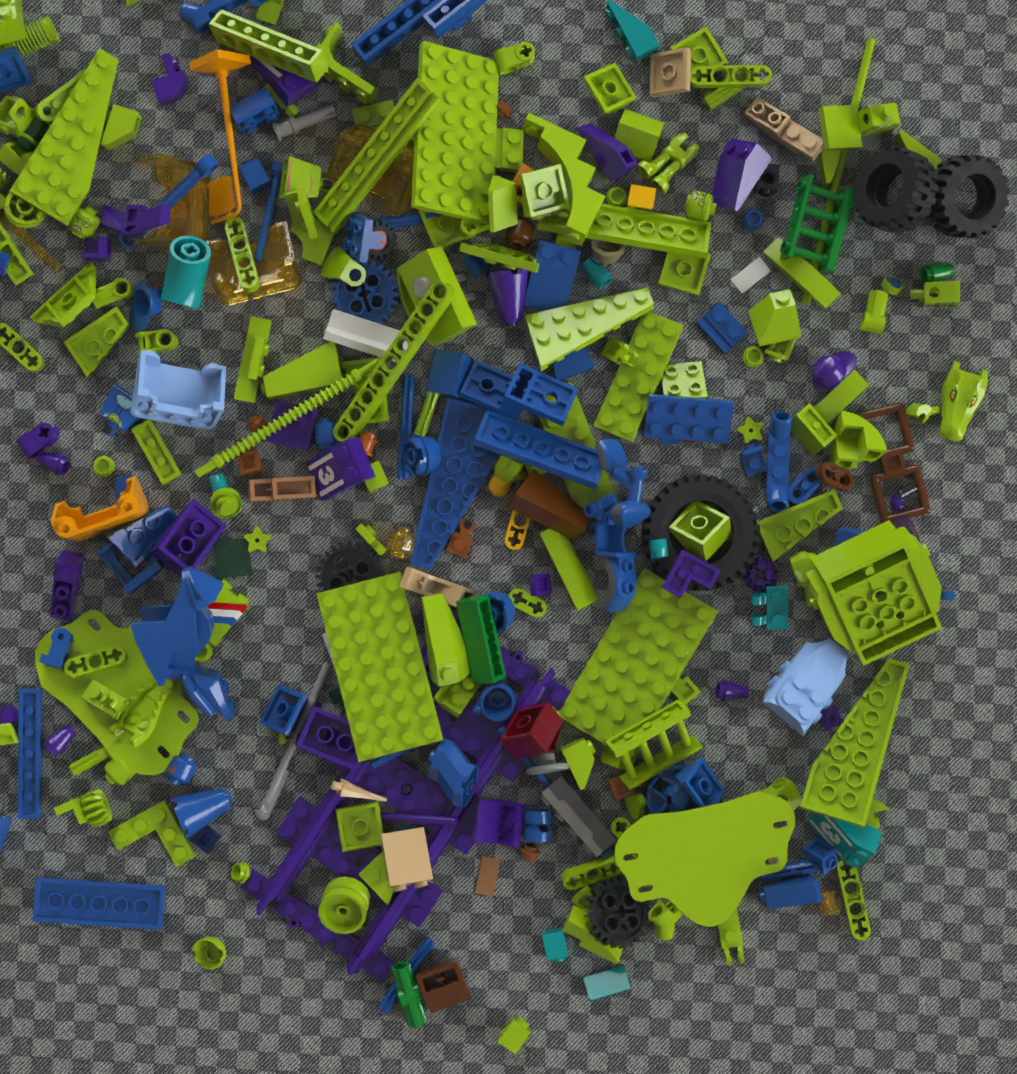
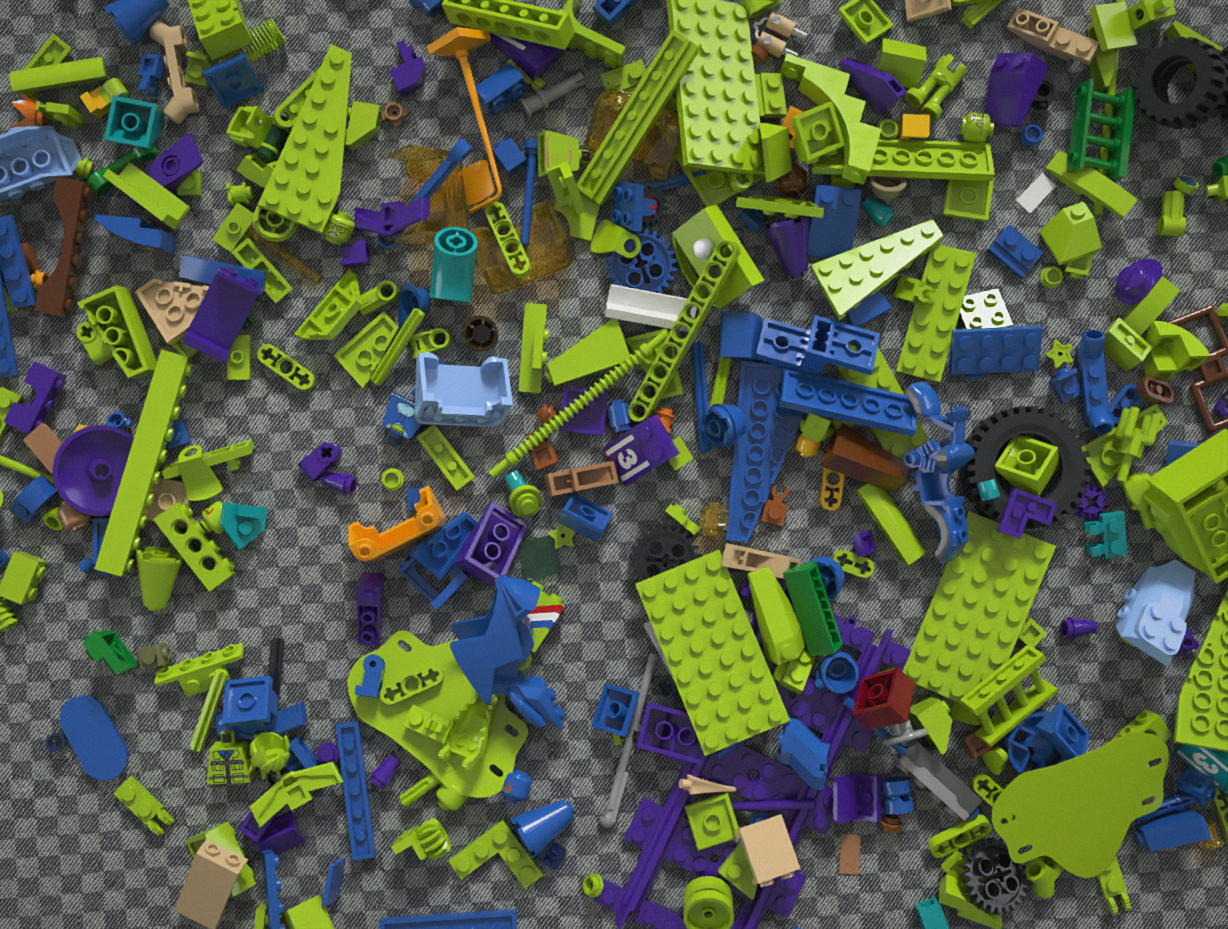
camera: 10 degrees left, 0 degrees up
(124, 341) = (397, 346): none -> lime axle
(146, 120) = (388, 113): none -> medium nougat plate
(206, 339) = (480, 333): none -> dark brown helmet
(279, 525) = (584, 517): none -> blue slope
(529, 85) = (781, 26): none -> tan piece
(805, 519) = (1134, 439): none -> lime plant

